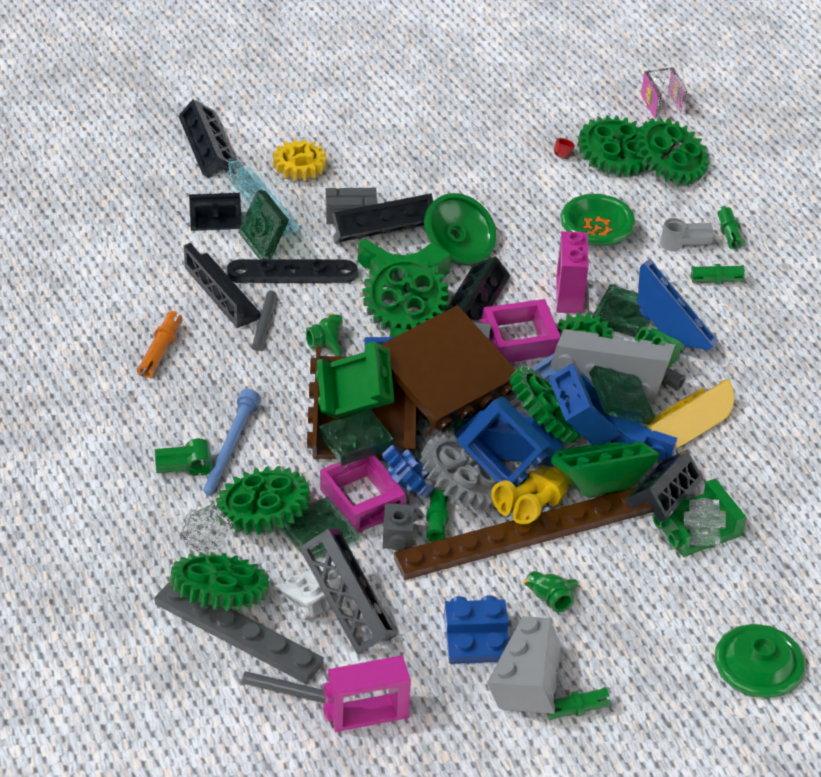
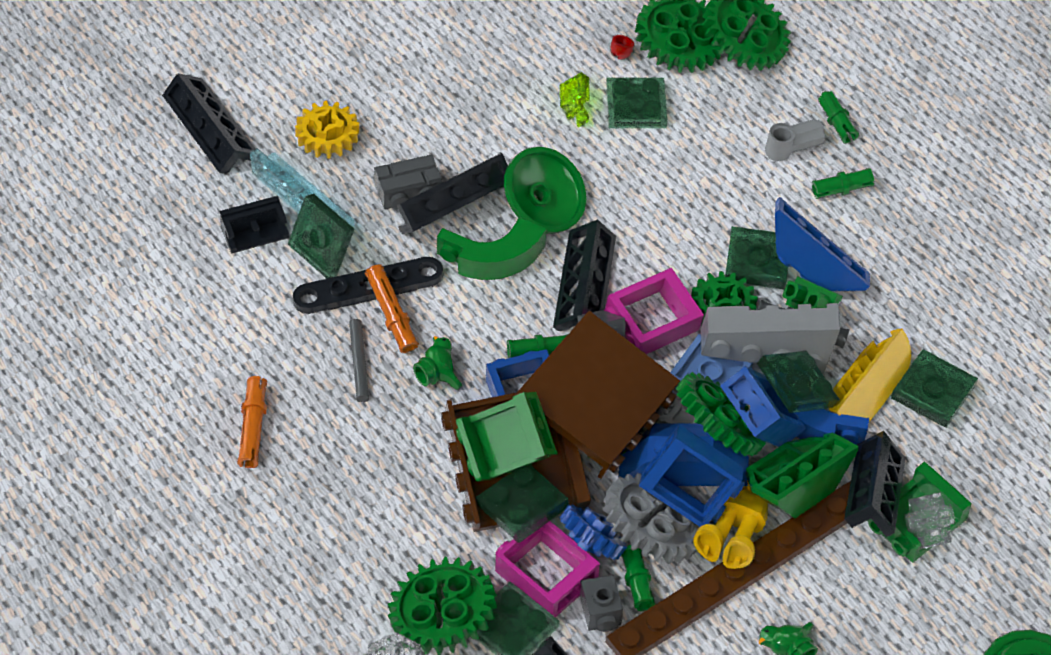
camera: 15 degrees left, 10 degrees up
(192, 457) = (340, 567): green piece -> none
(219, 287) = (294, 327): black fence -> none
(247, 404) = (379, 478): medium blue piece -> none
(304, 295) = (396, 319): none -> orange pin
(413, 274) = (512, 265): green gear -> none
(511, 173) = (572, 97): none -> clear neon green plate
(560, 186) = (636, 102): none -> clear green plate
(572, 272) = (690, 224): dark pink window -> none
(599, 215) = (692, 141): green piece -> none
(746, 432) = (934, 388): none -> clear green plate

